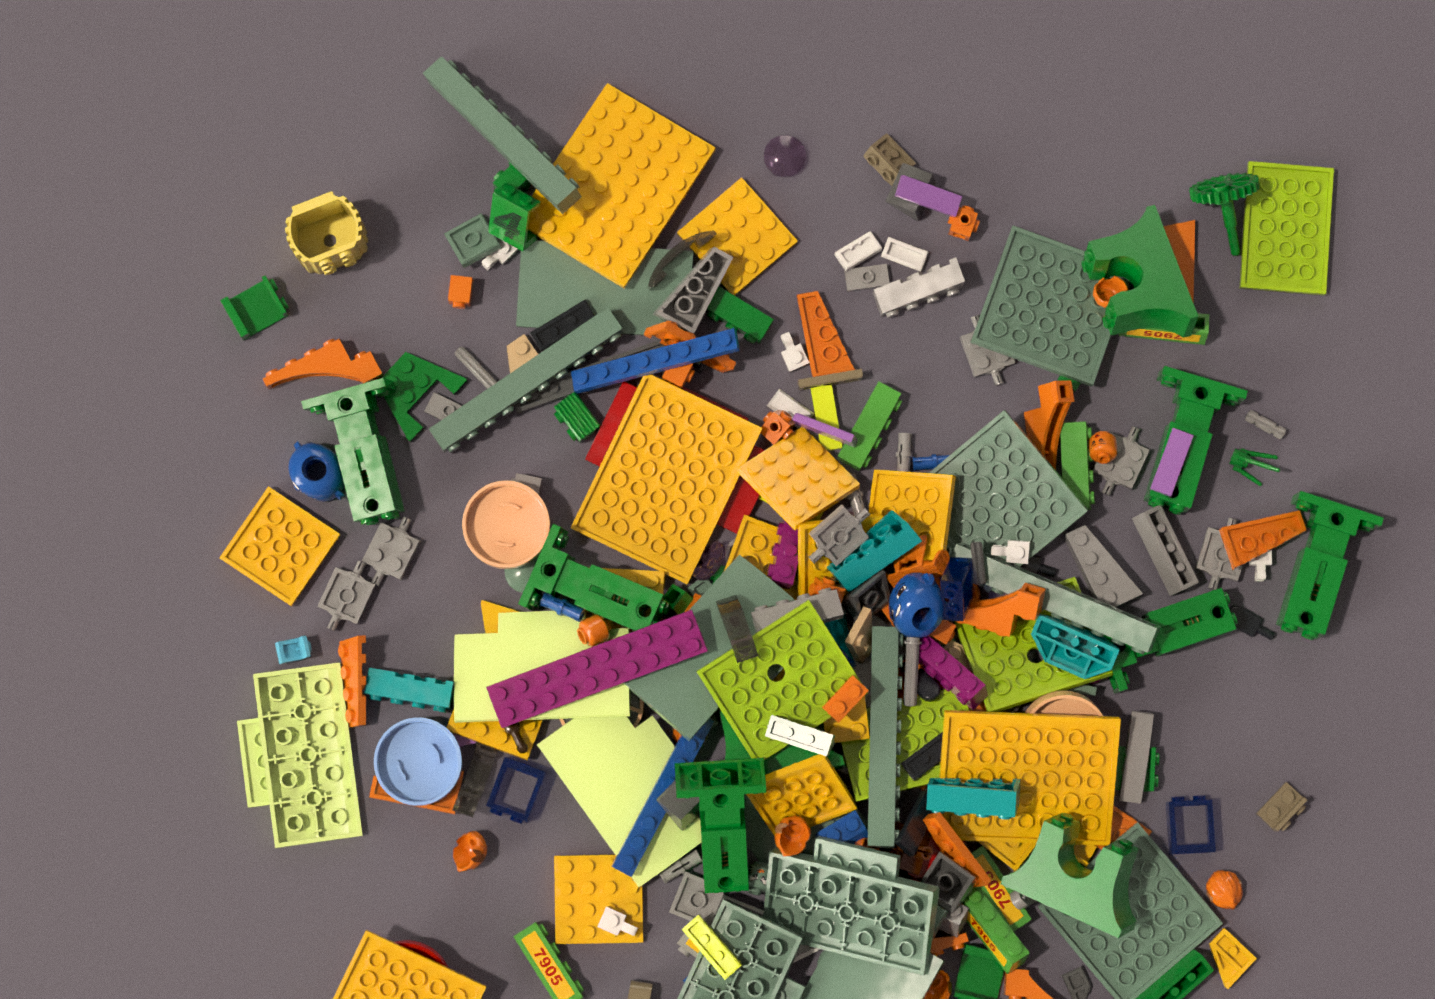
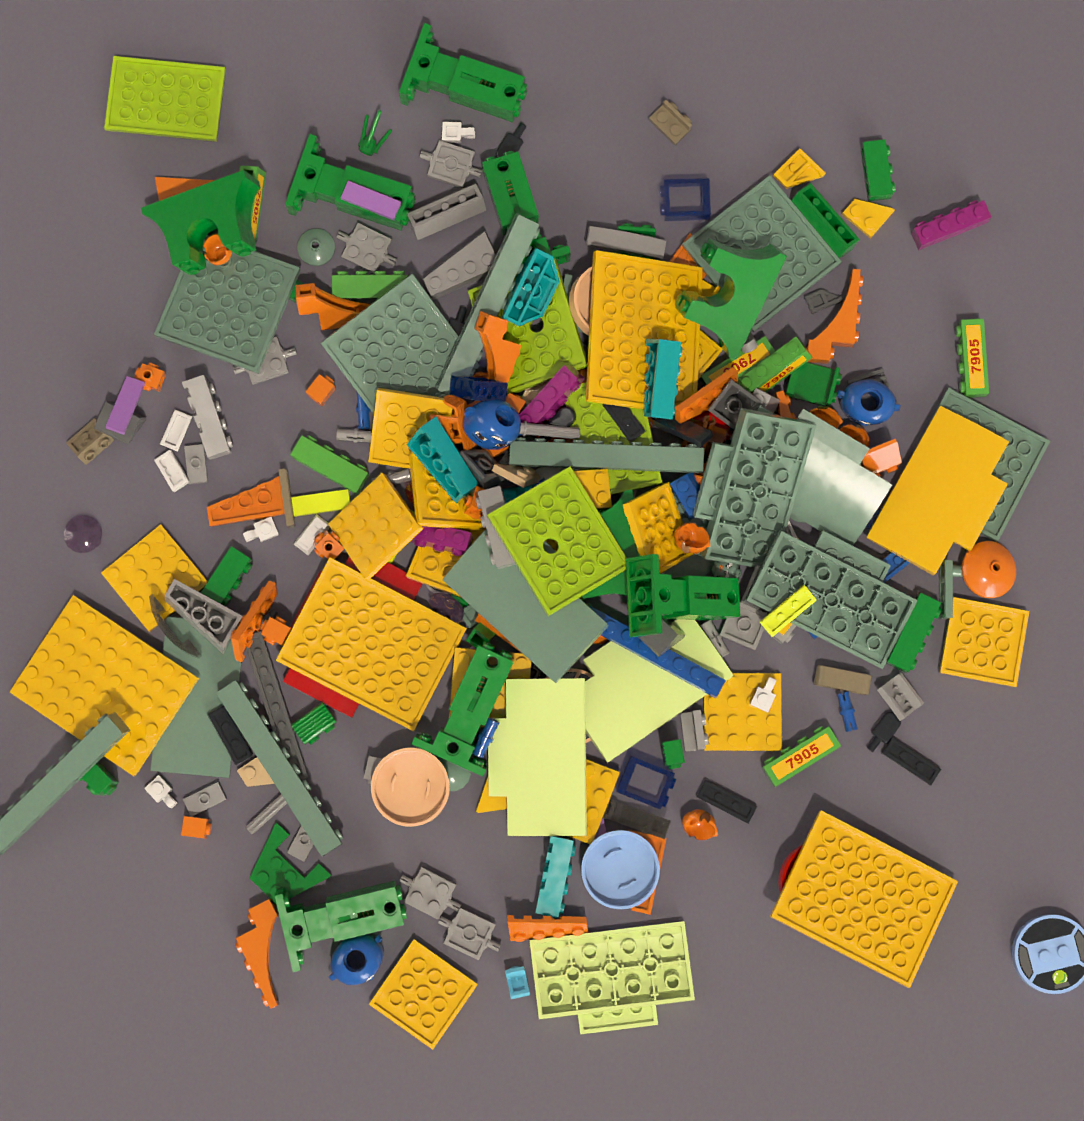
camera: 85 degrees left, 0 degrees up
(256, 308) = (204, 1015): green panel -> none
(324, 217) = (123, 950): light yellow piece -> none
(472, 240) = (149, 815): sand green plate -> none
(492, 300) = (204, 799): none -> light grey plate
(497, 882) = (726, 801): none -> black tile
(511, 216) = (129, 777): green panel -> none
(514, 731) = (593, 783): dark brown piece -> none
(548, 819) = (673, 754): none -> green brick
(575, 842) = (692, 730): none -> light grey bracket
(593, 630) = (508, 709): orange head -> none
(597, 668) = (543, 706): magenta plate -> none
(655, 360) = (266, 650): blue plate -> none
(737, 628) = (510, 579): clear smoke slope -> none
(800, 735) = (607, 525): piece -> none
(825, 429) = (332, 502): medium lavender tile -> none
(838, 535) = (428, 489): light grey plate -> none
(845, 698) = (575, 485): orange plate -> none
(955, 414) = (321, 389): none -> orange brick
(978, 563) = (455, 370): dark grey axle -> none
(1015, 551) = (445, 338): white plate -> none
(1103, 447) = (355, 261): orange head -> none
(1112, 411) = (319, 255): none -> sand green dish
(1222, 192) = (130, 148): green gear -> none
(1224, 889) = (740, 173): orange hair -> none
(1256, 537) = (437, 133): orange wing -> none
(1265, 424) = (338, 123): light grey axle -> none

